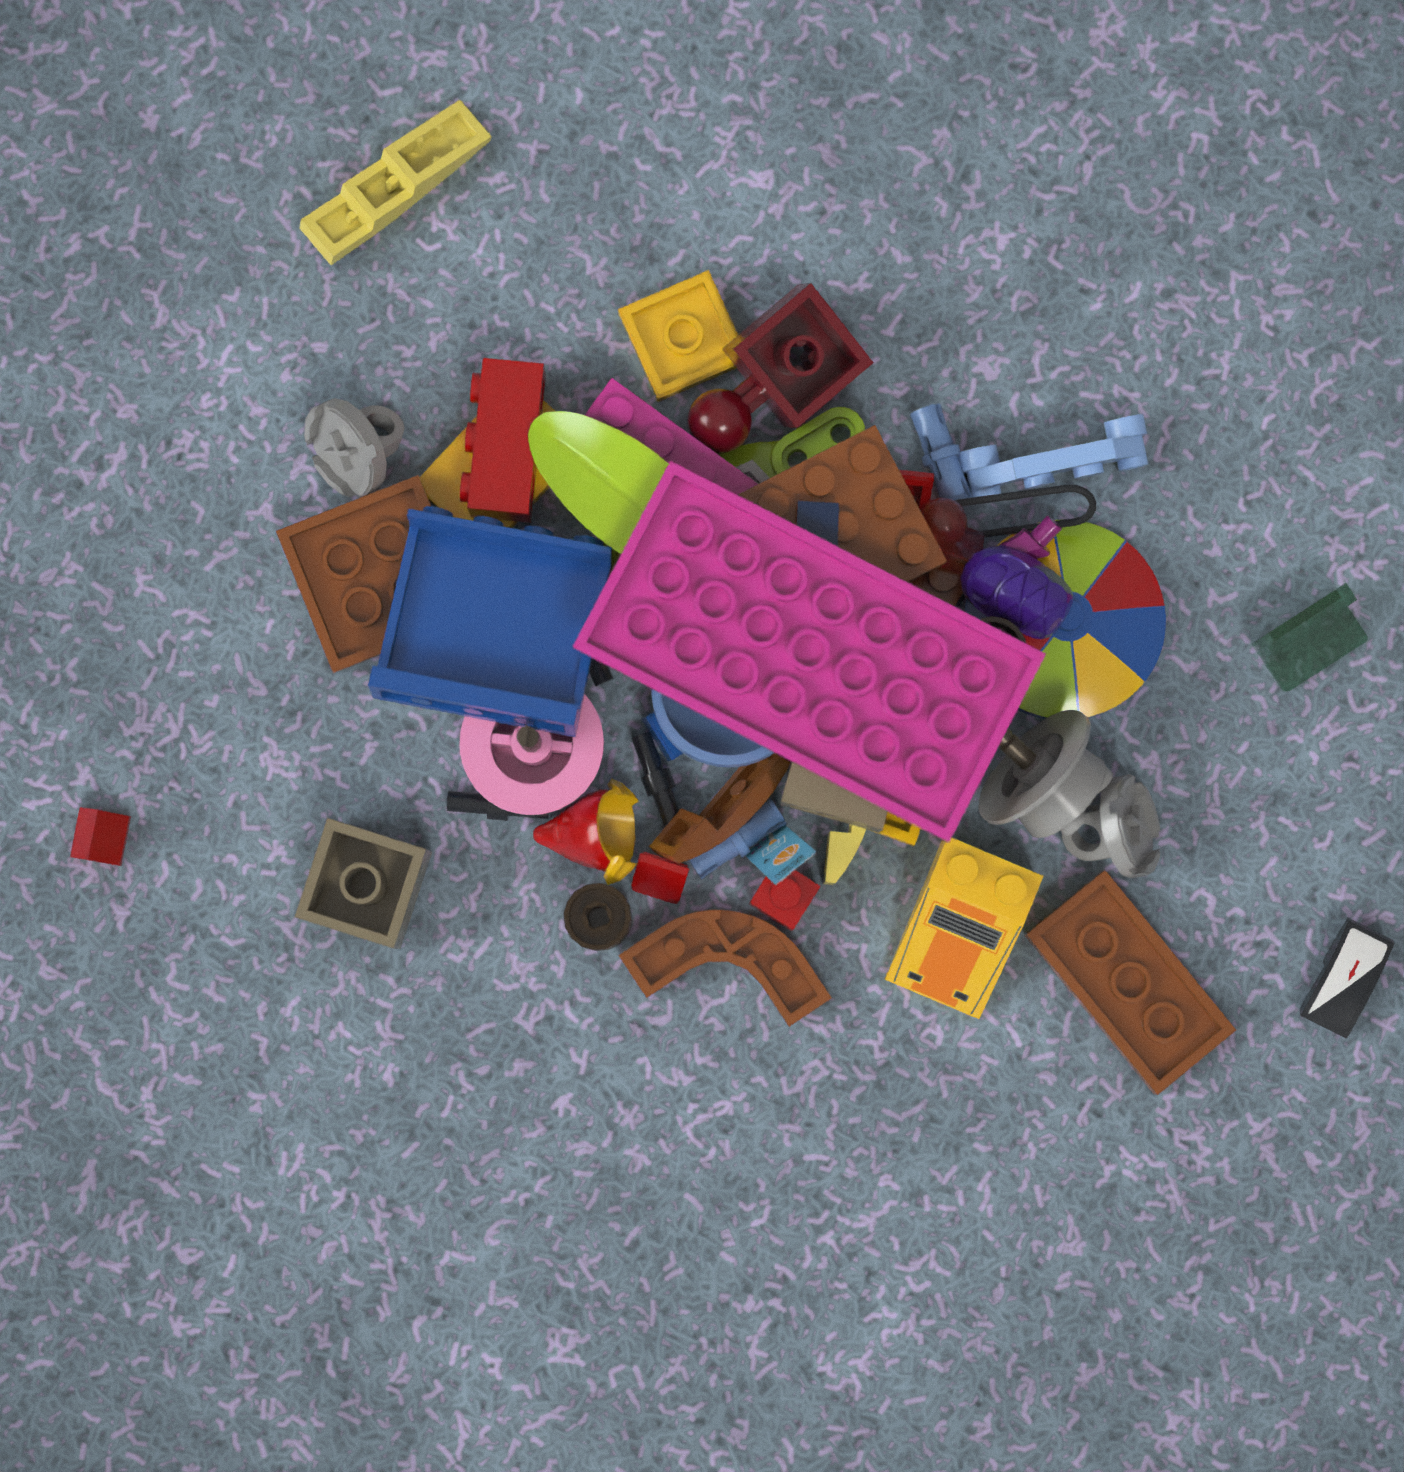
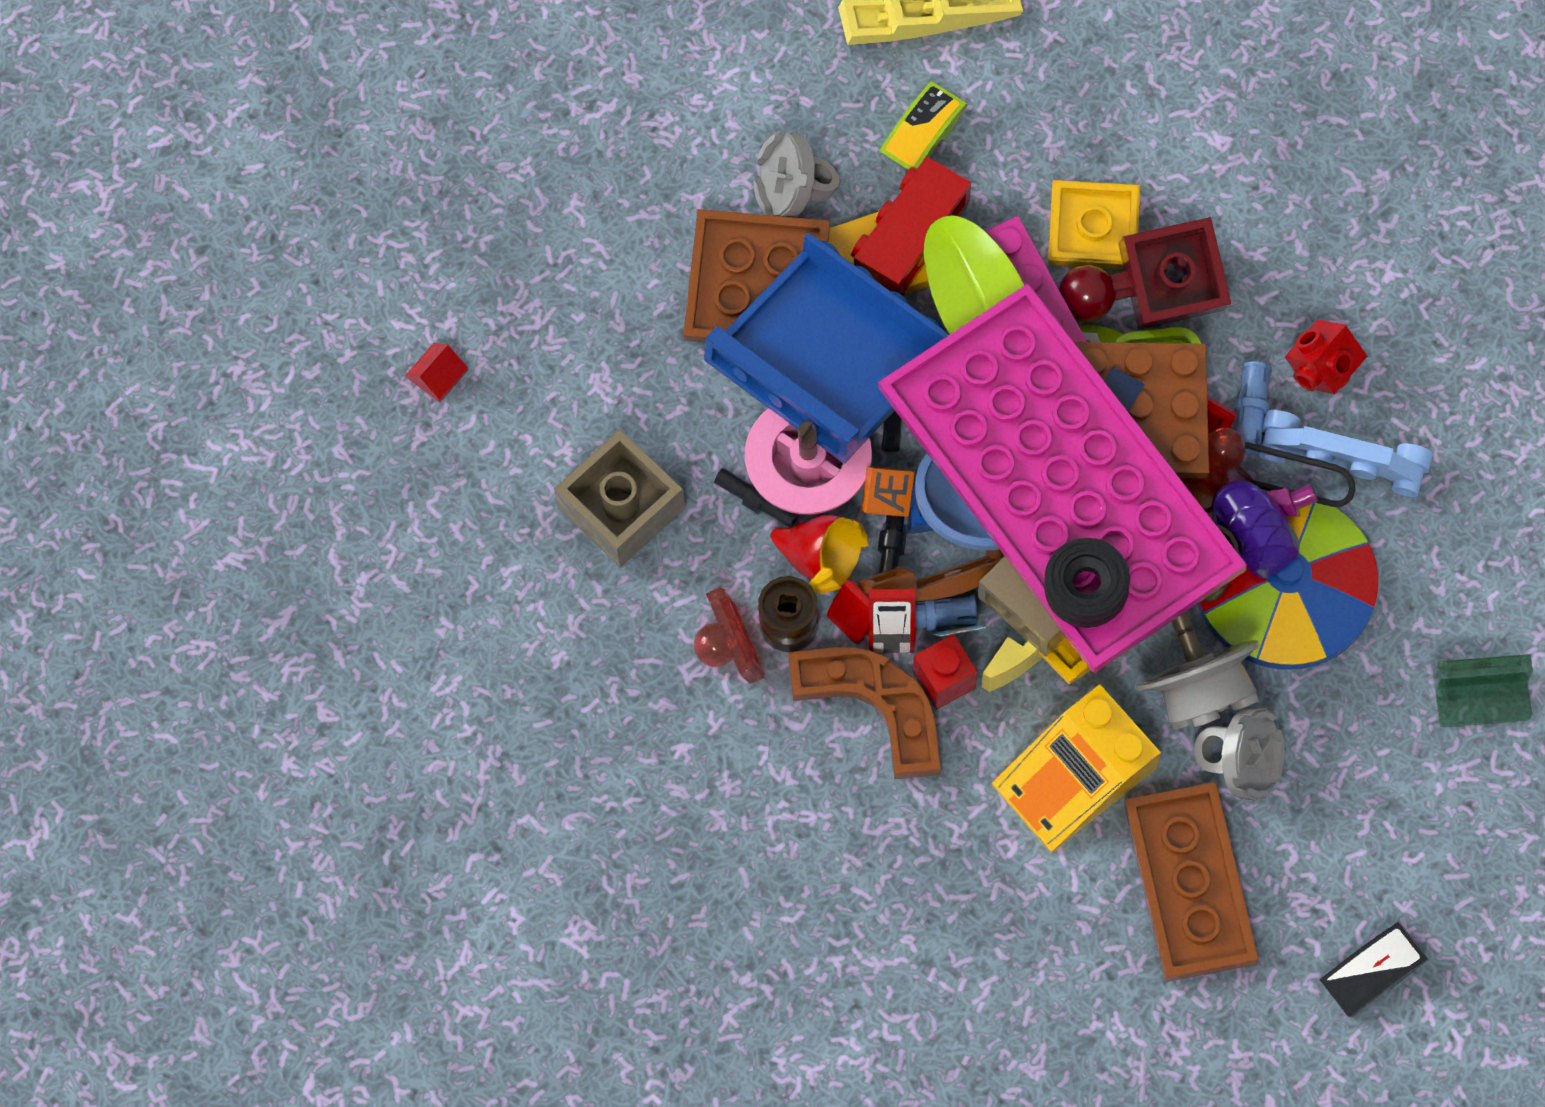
camera: 35 degrees right, 15 degrees down
(456, 317) = (923, 126): none -> slope
(550, 971) = (728, 639): none -> clear red tile
(631, 739) = (887, 491): none -> orange tile
(707, 875) = (891, 620): none -> slope
(929, 751) = (1086, 556): none -> black tyre
(989, 367) = (1325, 357): none -> red brick

